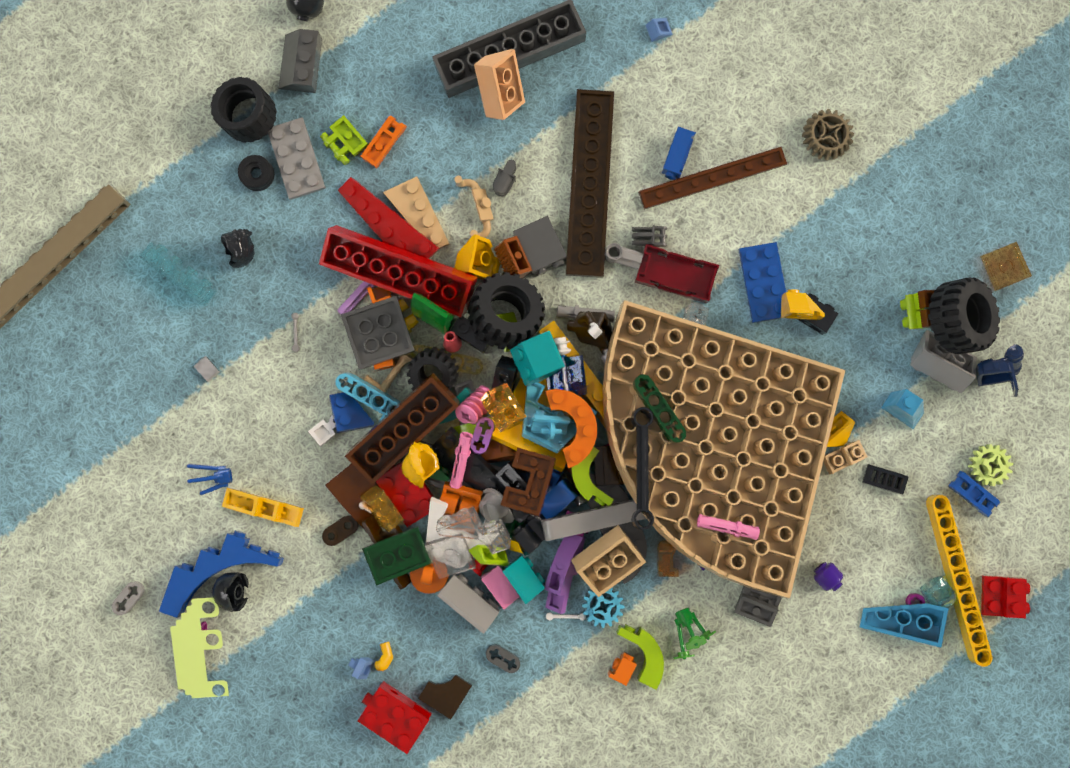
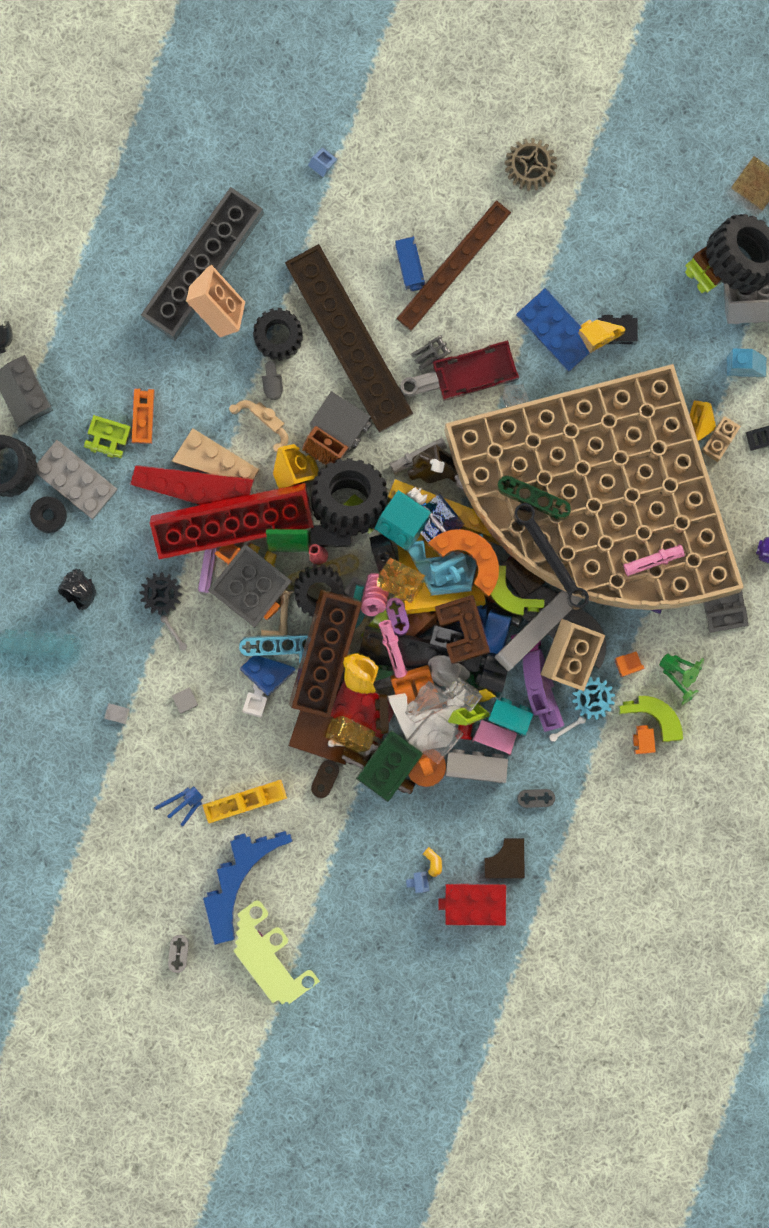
camera: 25 degrees left, 0 degrees up
(229, 591) = (263, 889): black cylinder -> none
(268, 393) = (185, 700): none -> light grey tile
(312, 292) = (154, 600): none -> black gear
(414, 515) = (382, 722): none -> dark brown plate
(534, 158) = (283, 350): none -> black tyre
(650, 596) = (628, 664): none -> orange panel
(665, 560) = (618, 619): clear orange leg -> none

